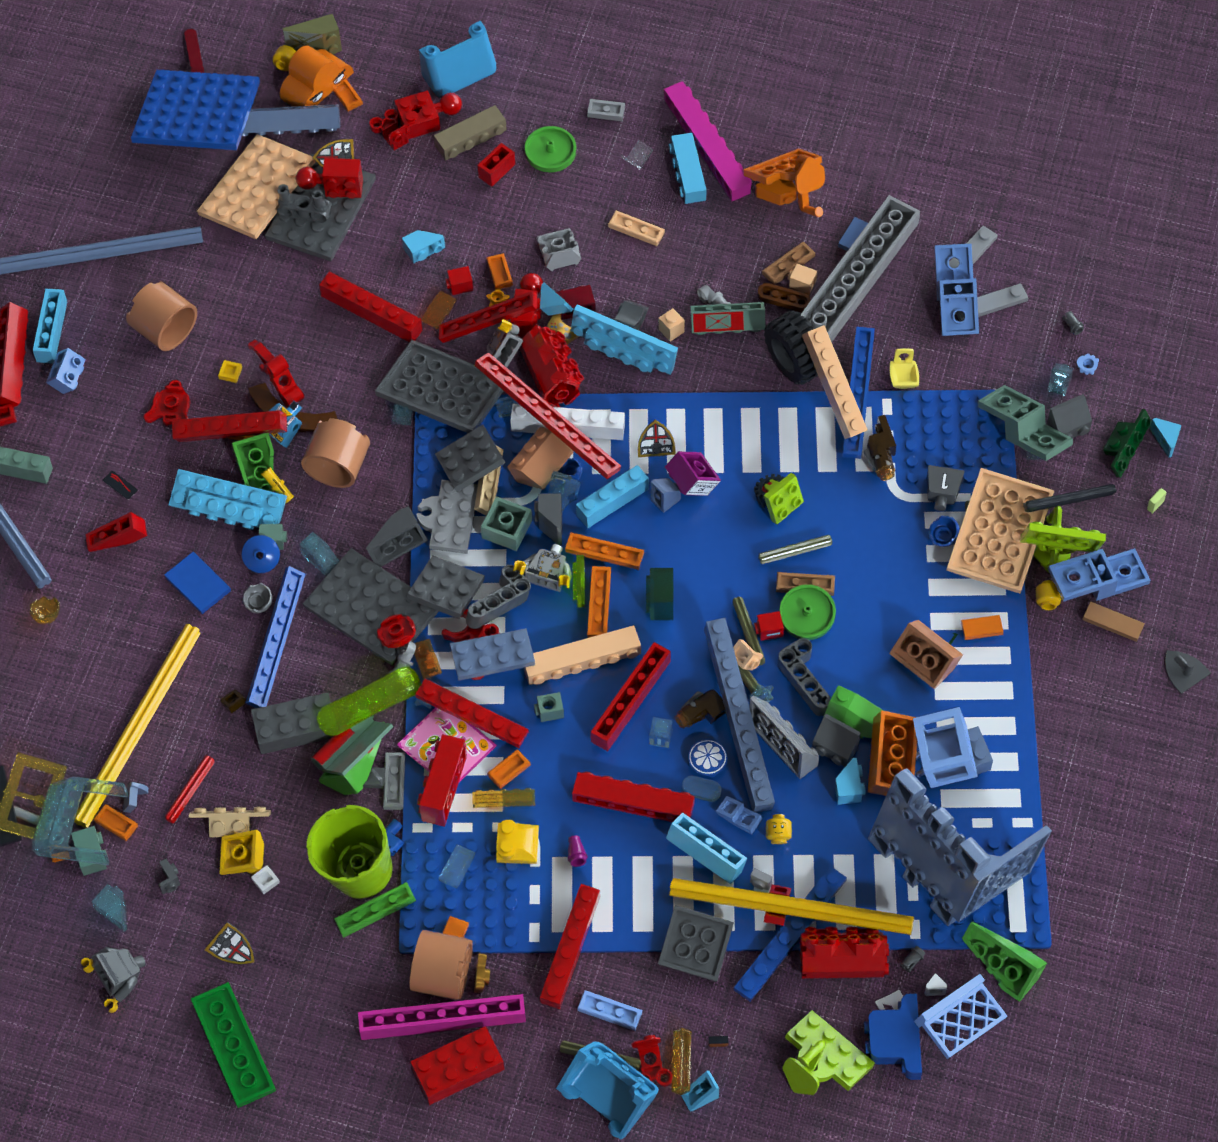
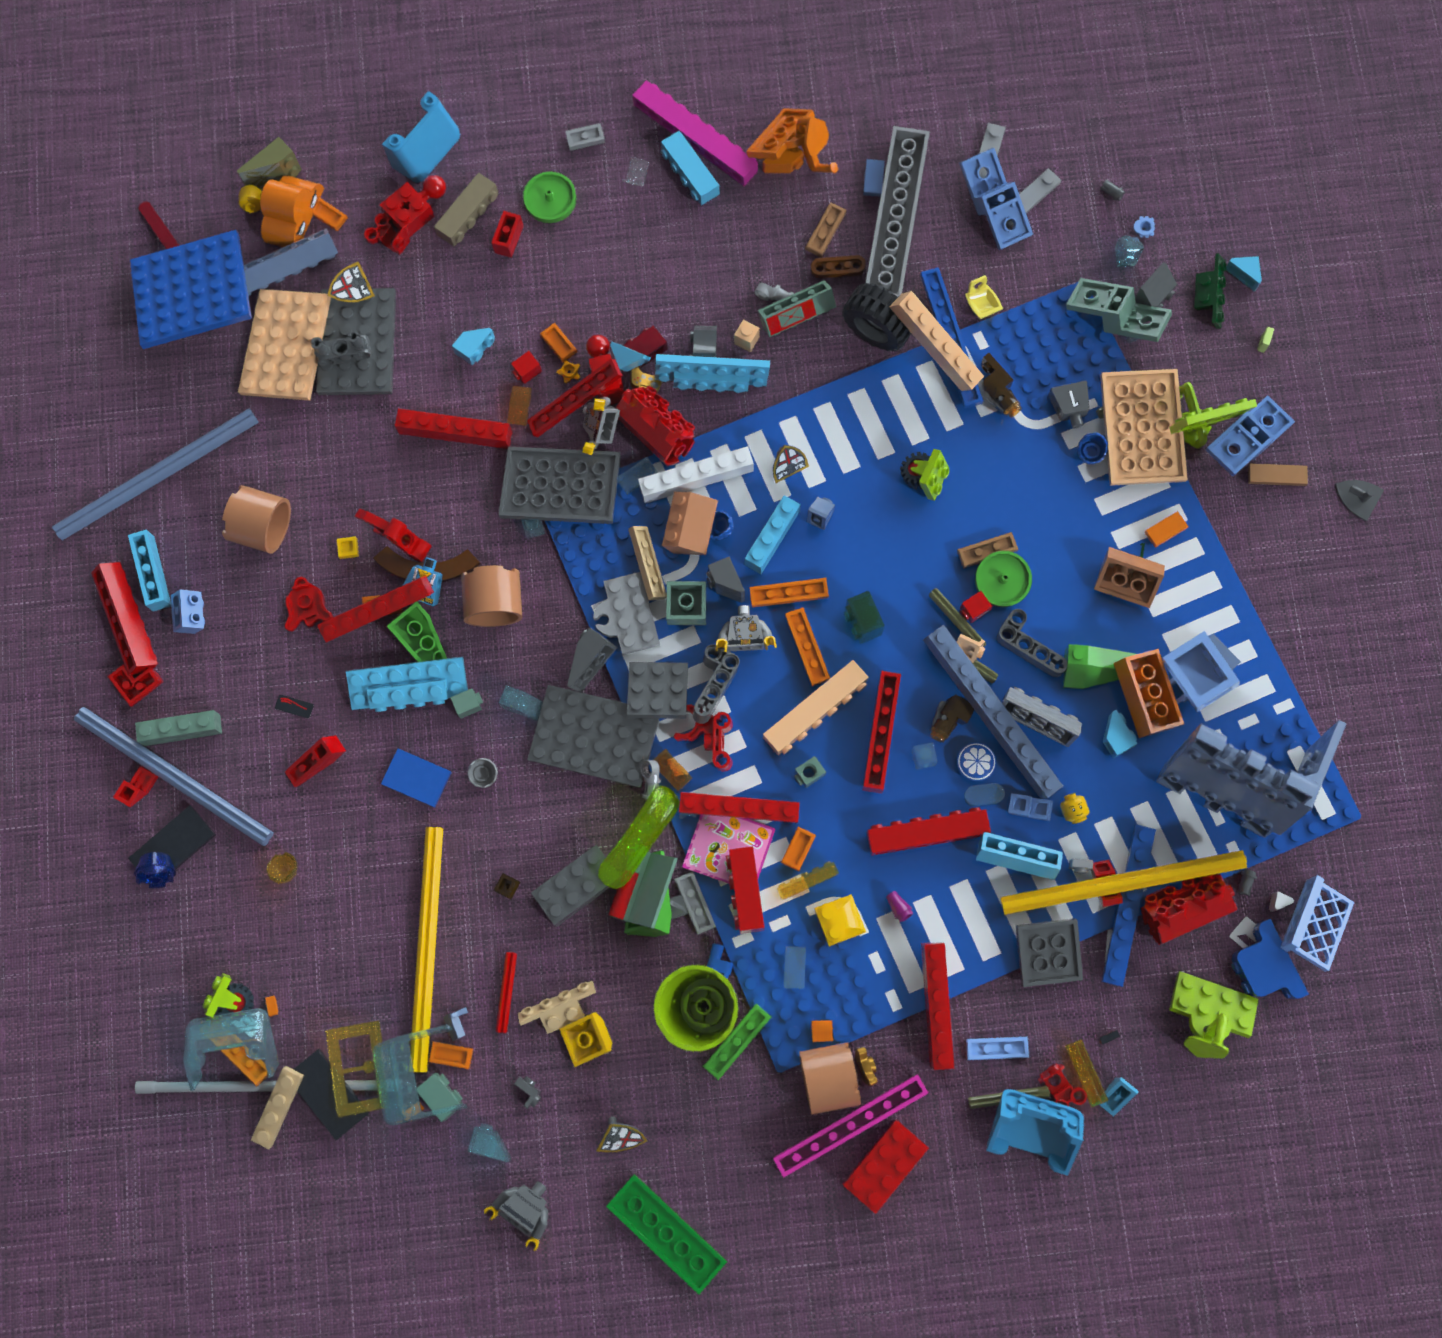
camera: 20 degrees left, 15 degrees up
(262, 544) = (464, 717): blue dish -> none
(265, 879) = (620, 1055): white plate -> none
(269, 475) = (438, 644): yellow pin -> none
(275, 638) = (518, 806): plate -> none
(339, 178) = (364, 308): red brick -> none
(396, 631) = (633, 756): red tile -> none
(470, 458) = (622, 550): dark grey plate -> none
(492, 654) = (735, 744): sand blue plate -> none
(548, 416) = (679, 480): red plate -> none
(559, 249) = (605, 297): light grey slope -> none
(566, 486) = (722, 546): clear light blue slope -> none
(579, 581) = (780, 630): clear neon green plate -> none
(636, 228) = (667, 248): light nougat tile -> none
(692, 473) = (839, 483): magenta brick -> none
(763, 690) = (1001, 675): clear light blue plate -> none
(795, 549) = (963, 519): olive axle -> none
(802, 279) = (847, 241): light nougat brick -> none
(836, 741) = (1090, 700): dark grey slope -> none
(1008, 962) = (1338, 852): bright green wedge -> none
(1047, 595) = (1210, 473): yellow head -> none
(1069, 498) = (1192, 370): black axle -> none

